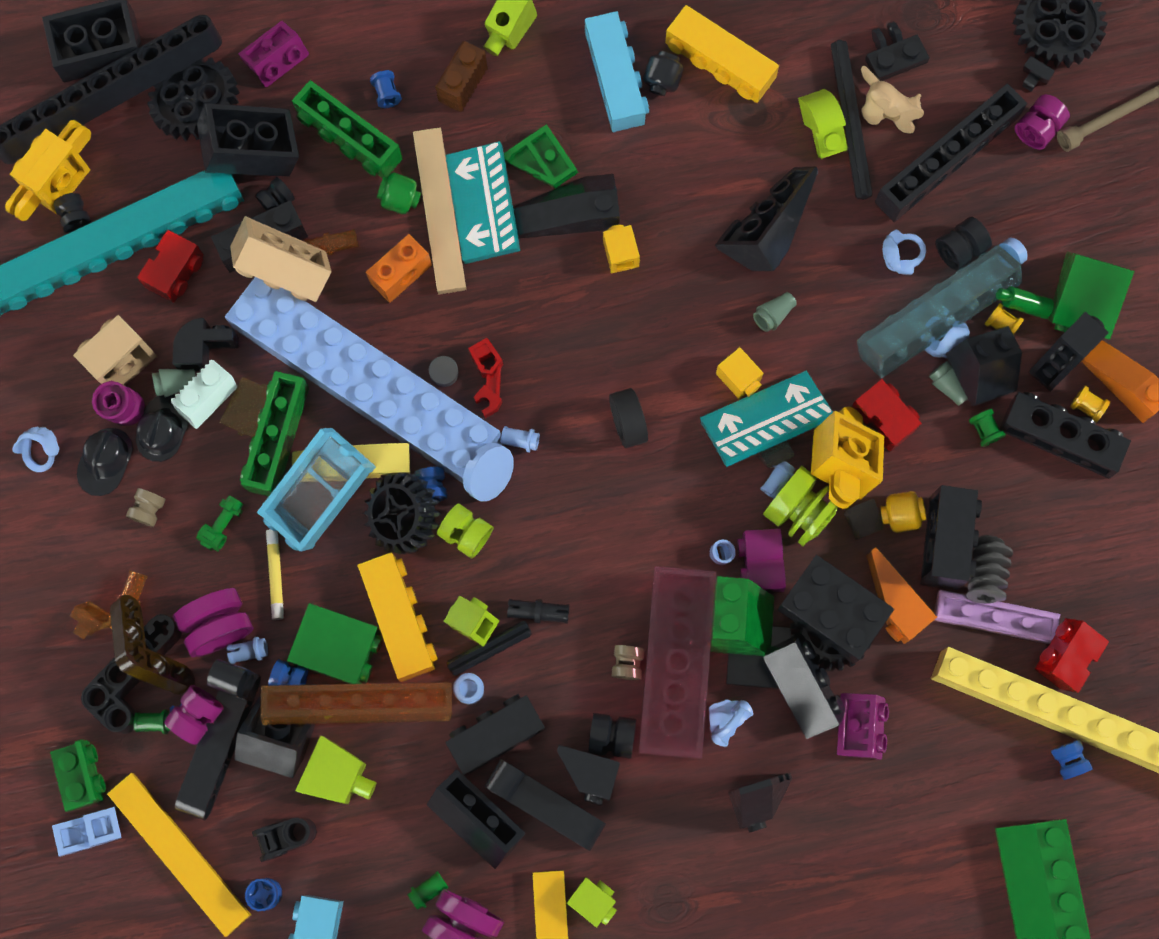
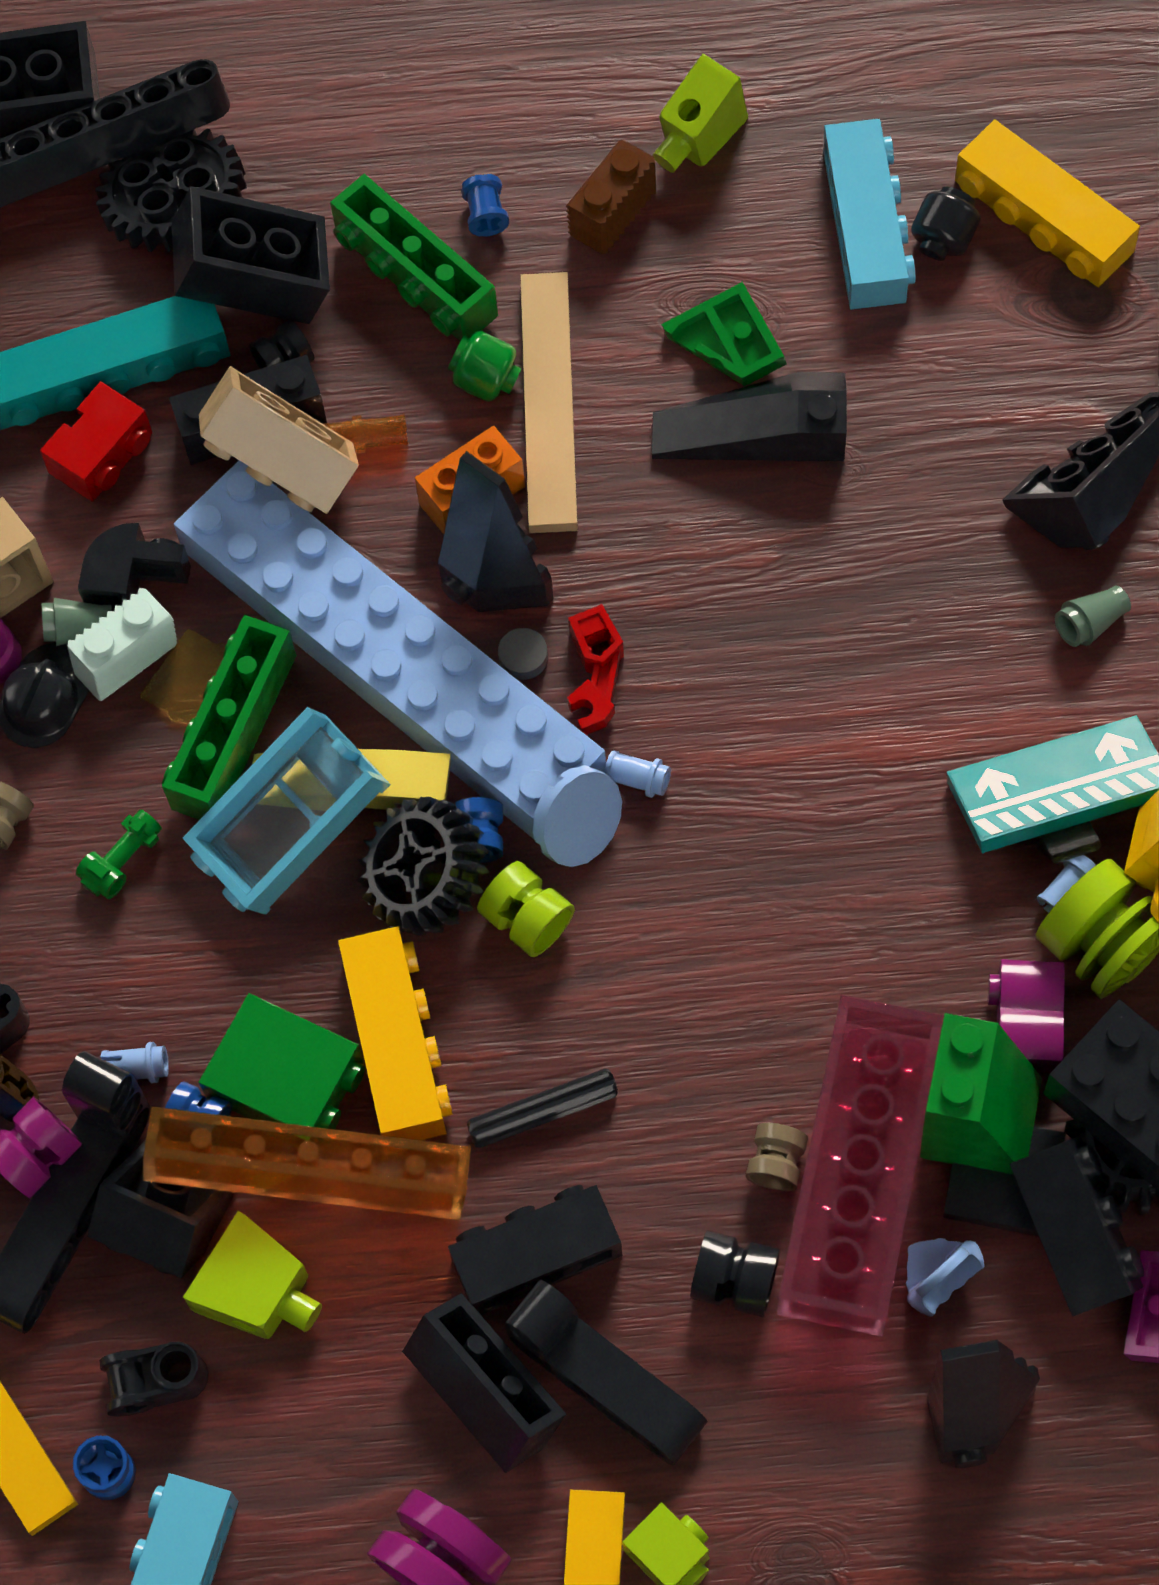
camera: 10 degrees right, 10 degrees down
(213, 622) = (84, 1004): magenta wheel -> none
(274, 53) = (311, 134): magenta bracket -> none
(274, 575) = (197, 948): light yellow bar -> none
(413, 314) = (484, 549): none -> black wedge
(427, 890) = (382, 1498): green pin -> none
(468, 688) = (499, 1171): light blue tile -> none
(471, 620) = (518, 1054): lime brick -> none
(482, 202) = (621, 395): teal tile -> none
(538, 611) = (633, 1056): black pin -> none
(590, 773) = (690, 1326): black slope -> none
(621, 248) = (843, 489): yellow brick -> none
(628, 417) = (824, 755): black tyre -> none
(726, 549) = (968, 993): light blue hinge -> none
(740, 374) = (1022, 707): yellow brick -> none

